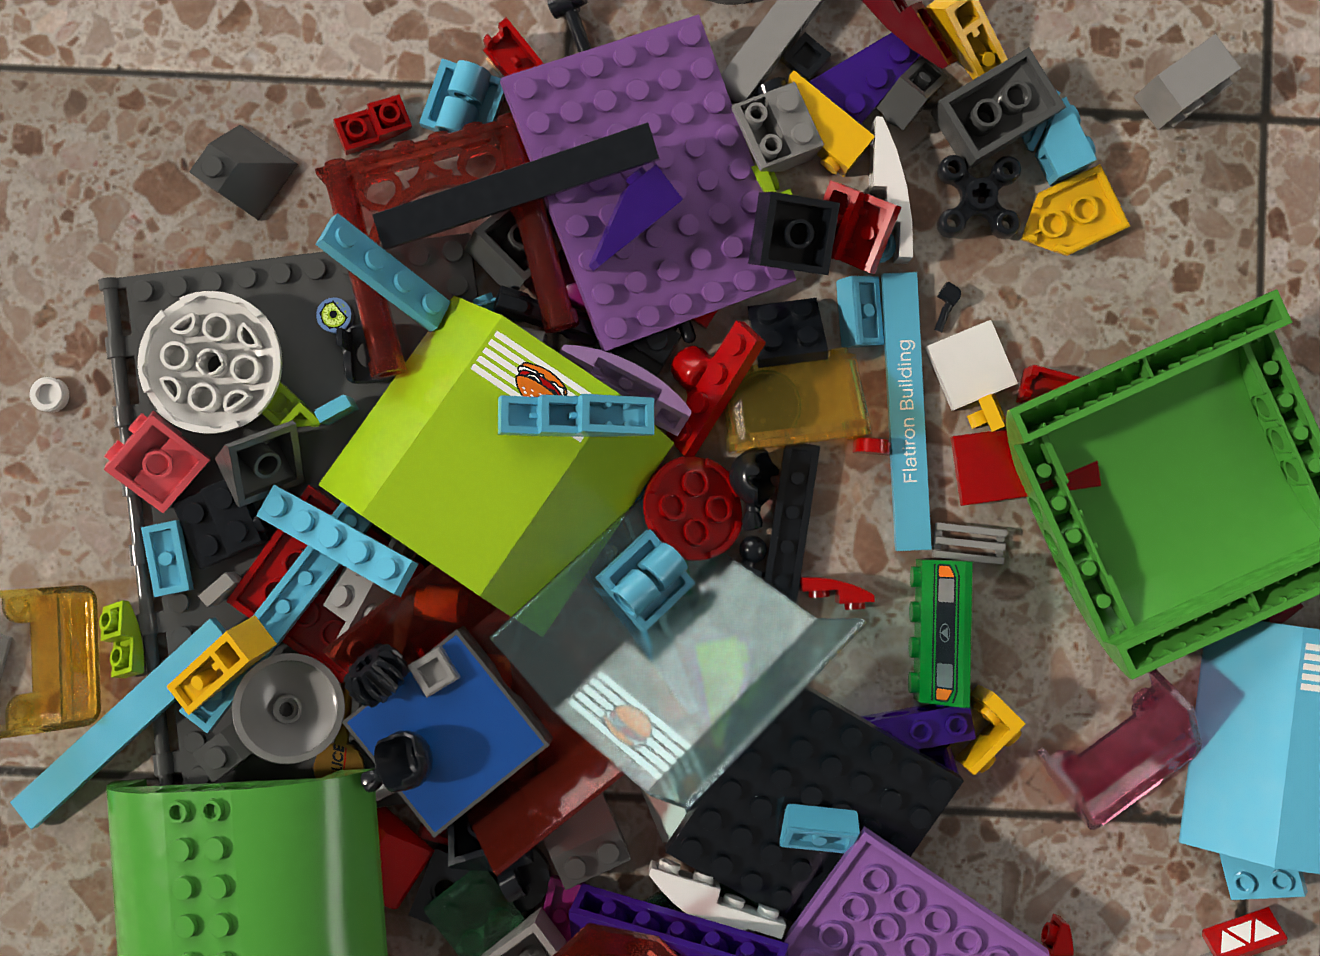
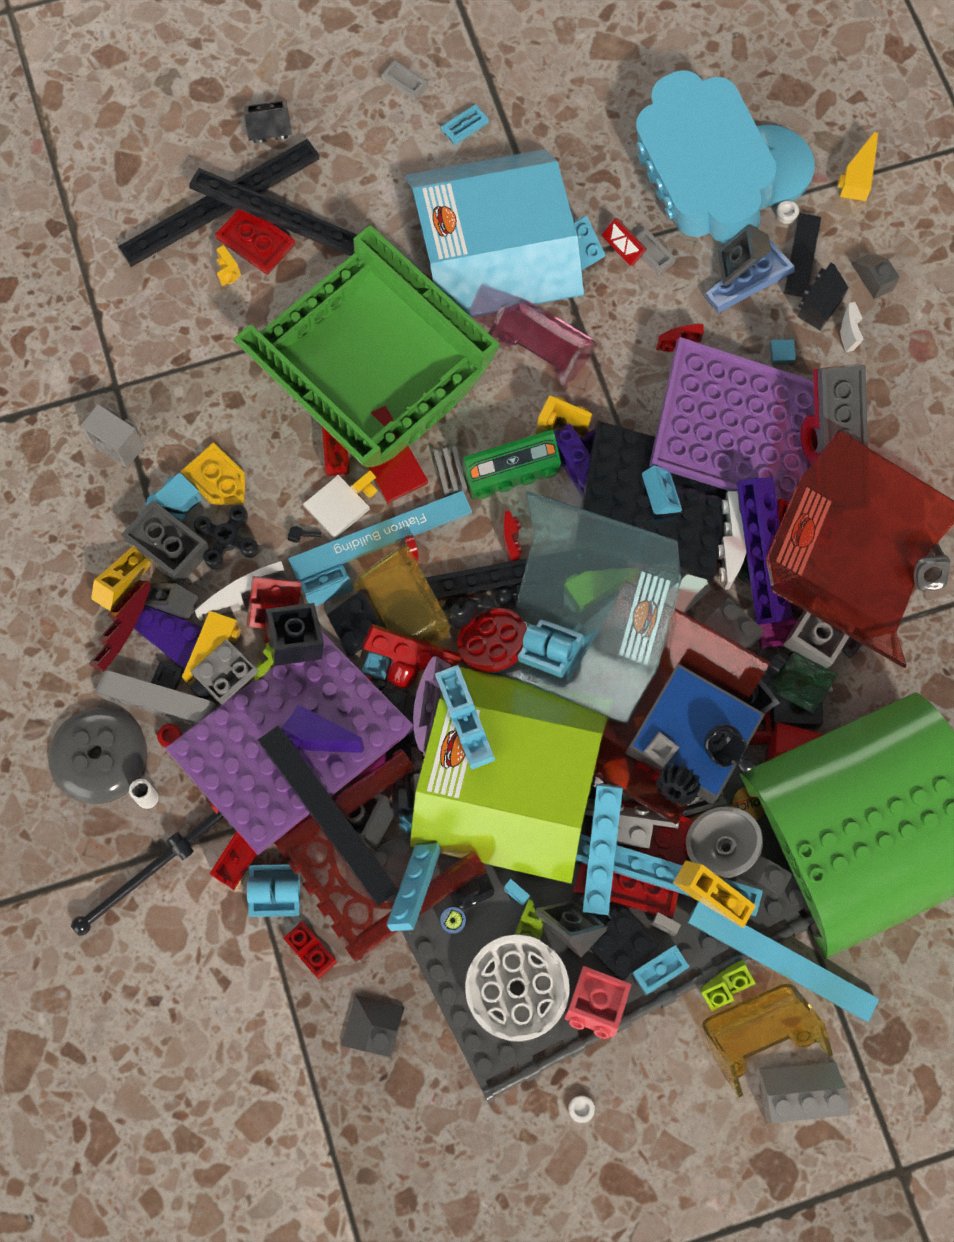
camera: 115 degrees left, 15 degrees down
(713, 336) = (376, 666): none -> medium azure tile
(723, 36) = (168, 734): none -> red tile

